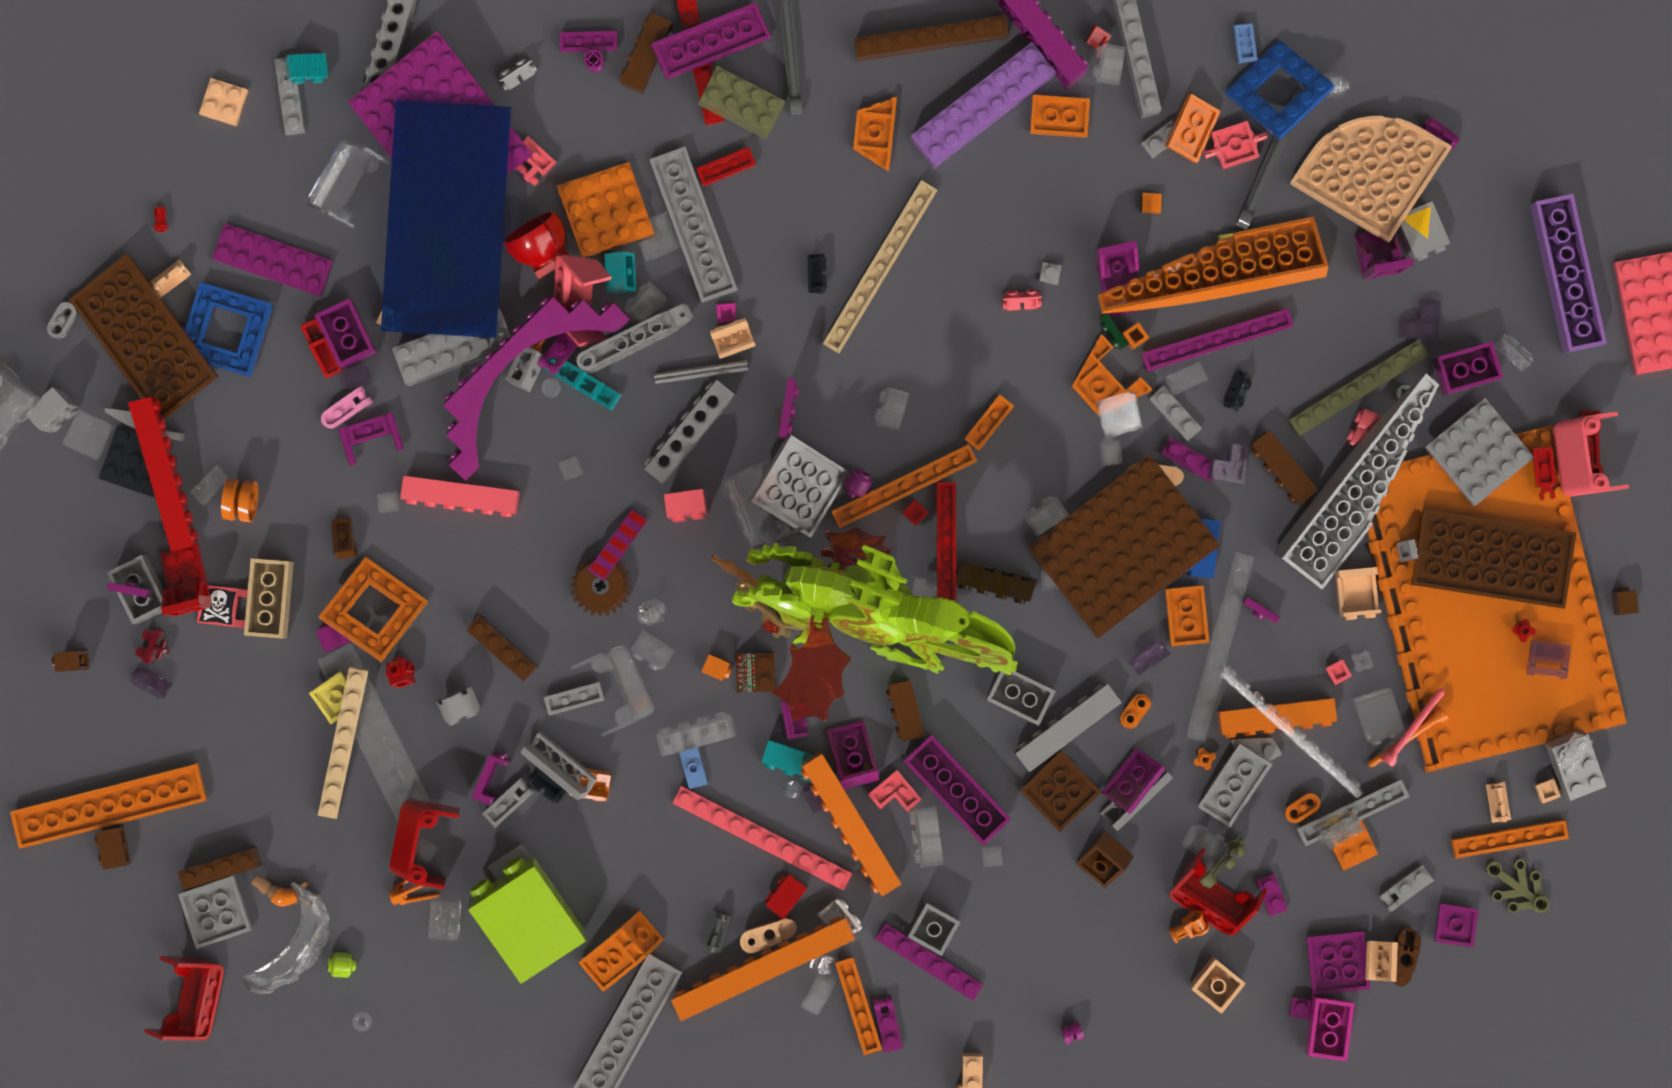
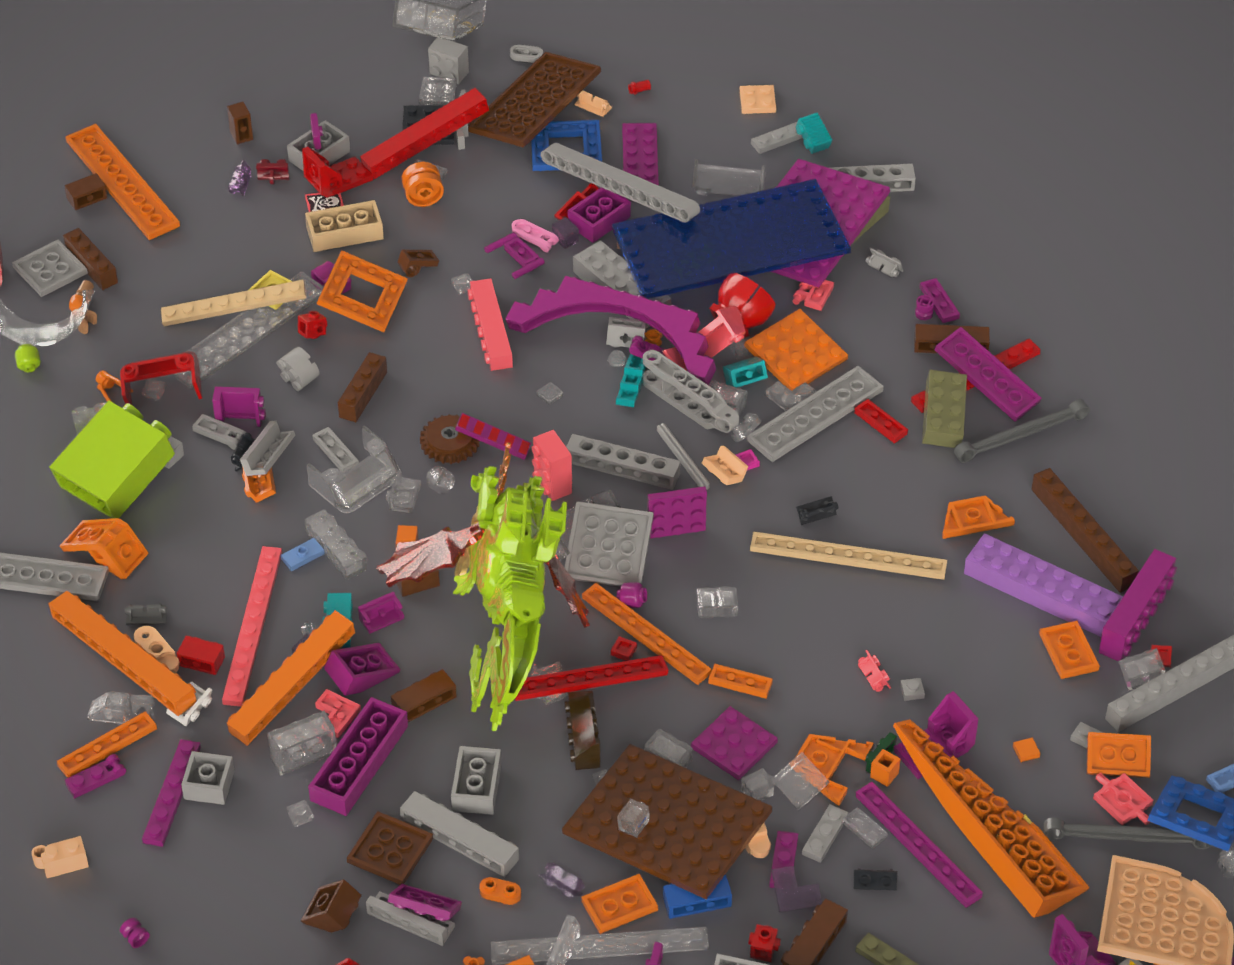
camera: 70 degrees right, 40 degrees down
(325, 301) = (620, 182): none -> light grey beam
(687, 295) = (748, 424): none -> clear plate
(1052, 453) = (734, 743): none -> magenta plate
(1122, 577) = (633, 817): none -> clear brick
(1279, 514) = (764, 942): none -> red brick

